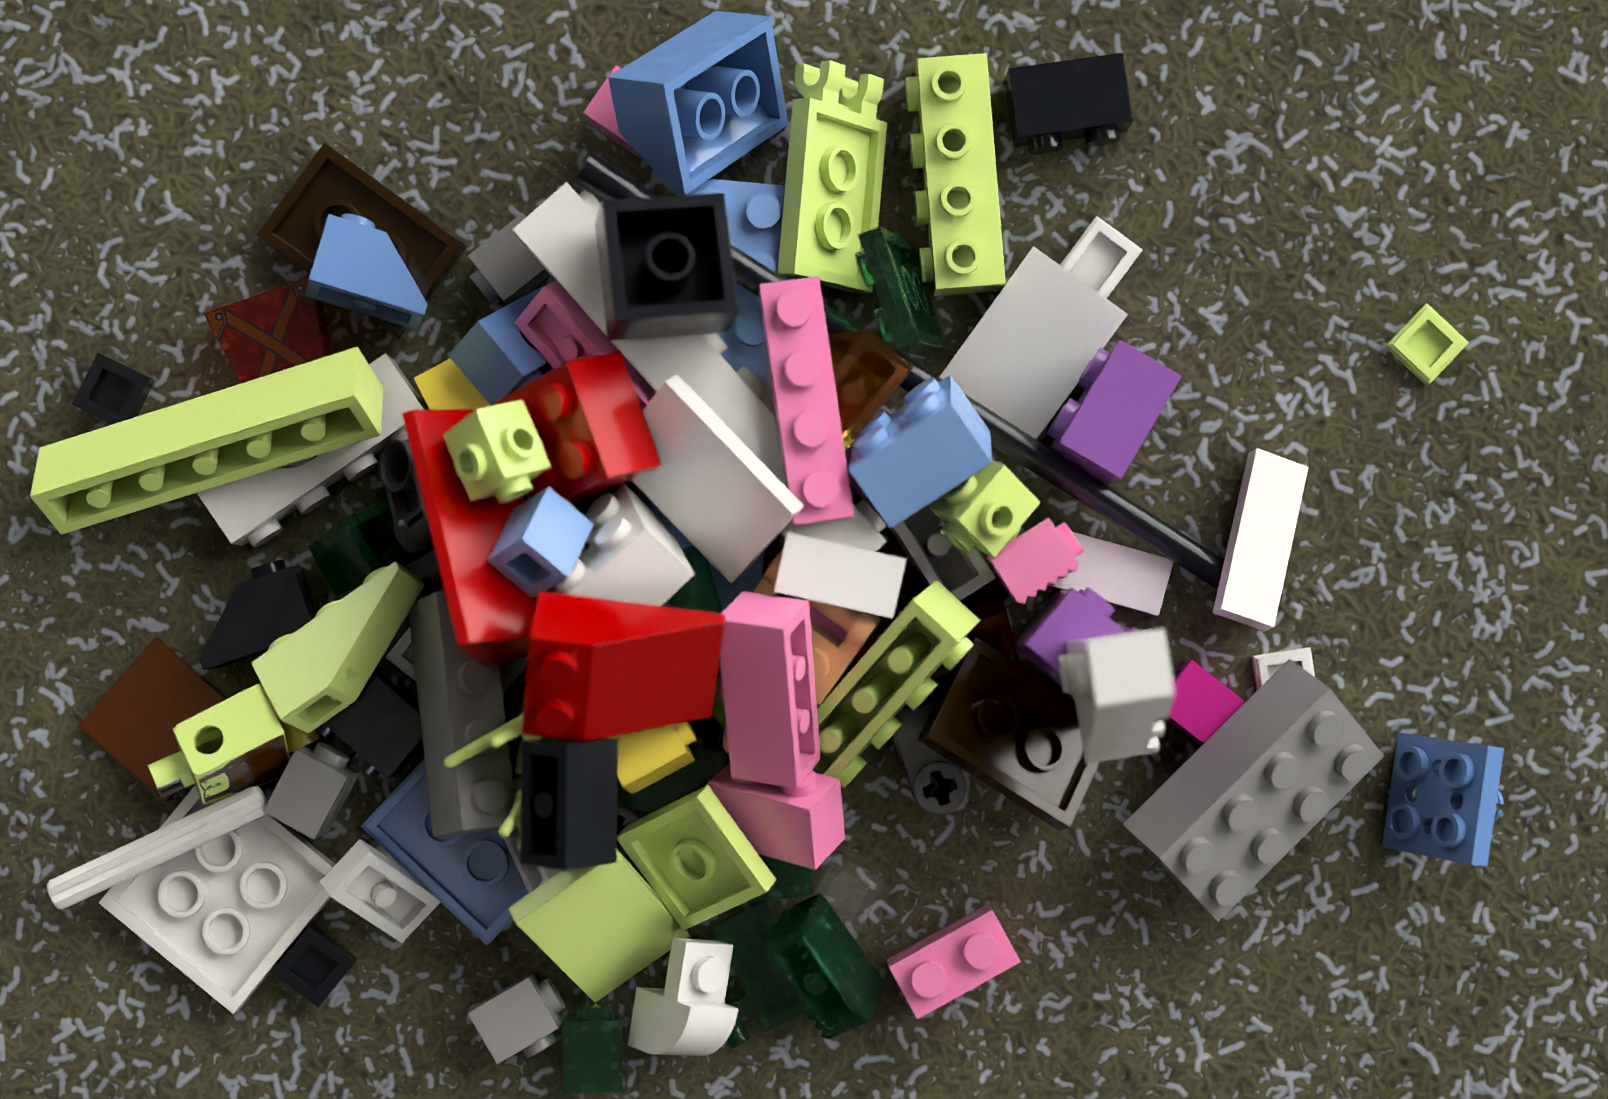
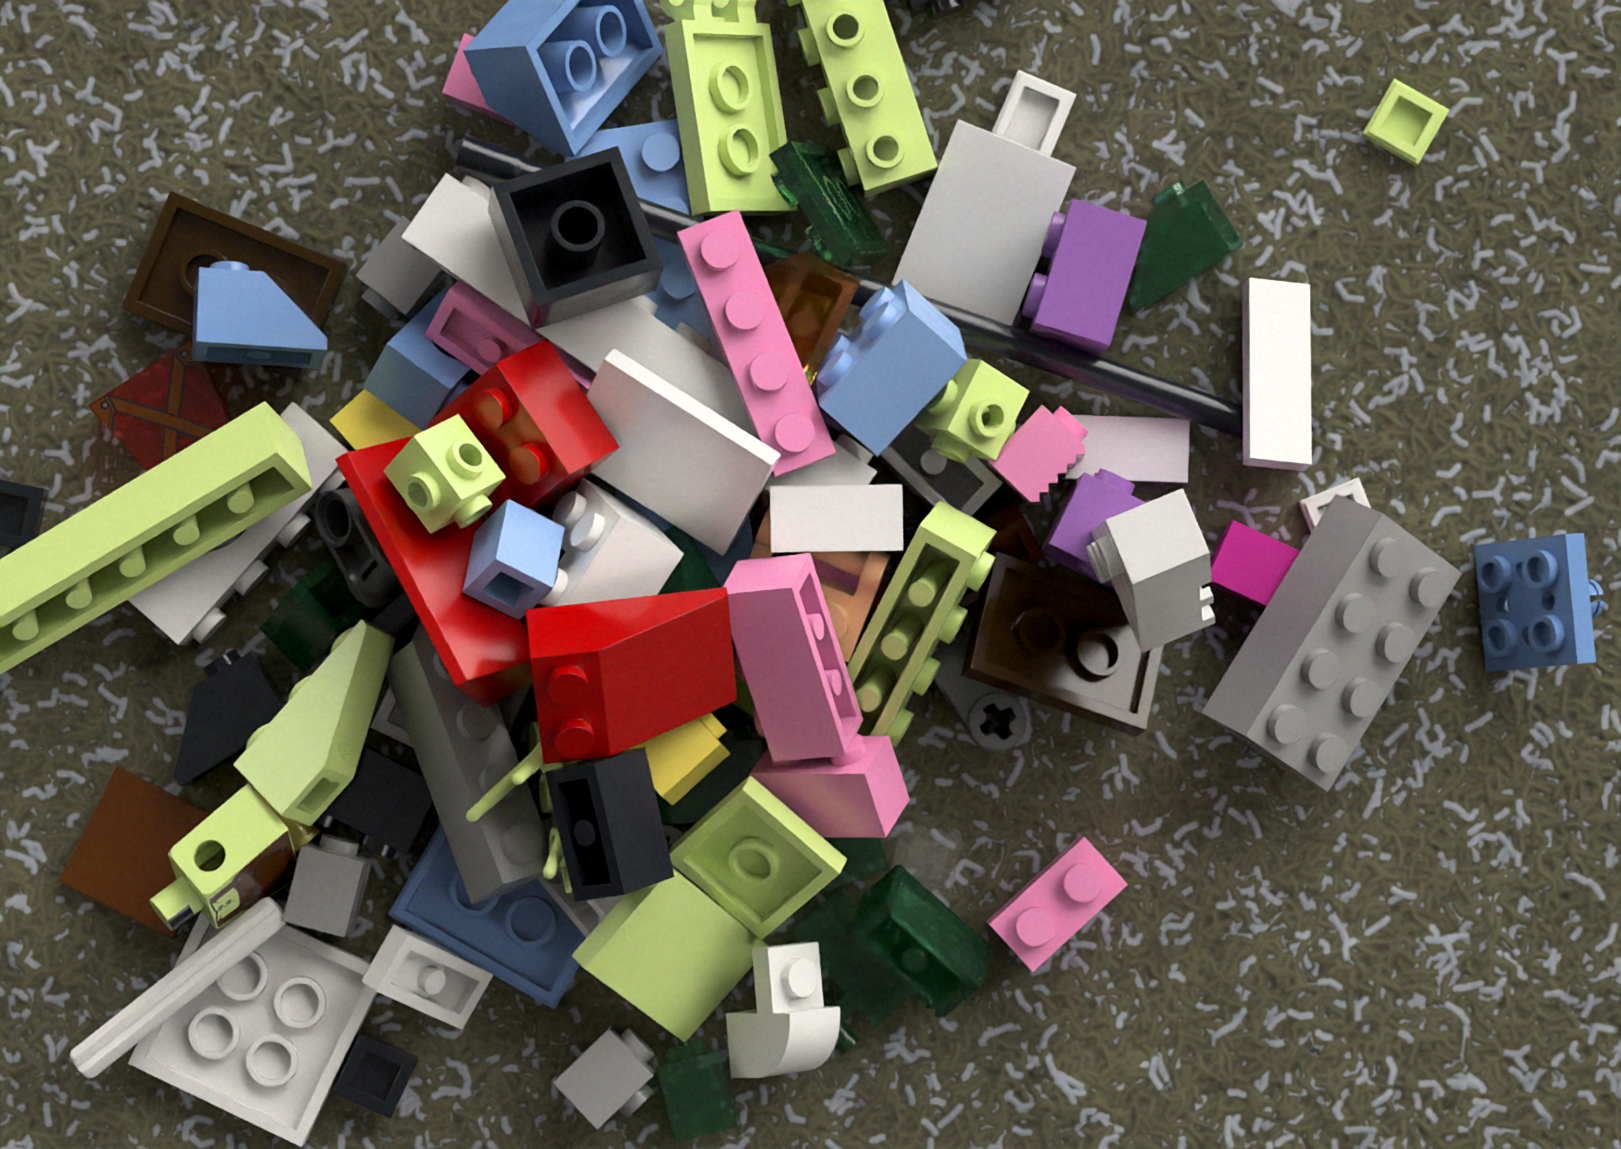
camera: 15 degrees left, 0 degrees up
(1205, 402) = (1179, 244): none -> clear green slope

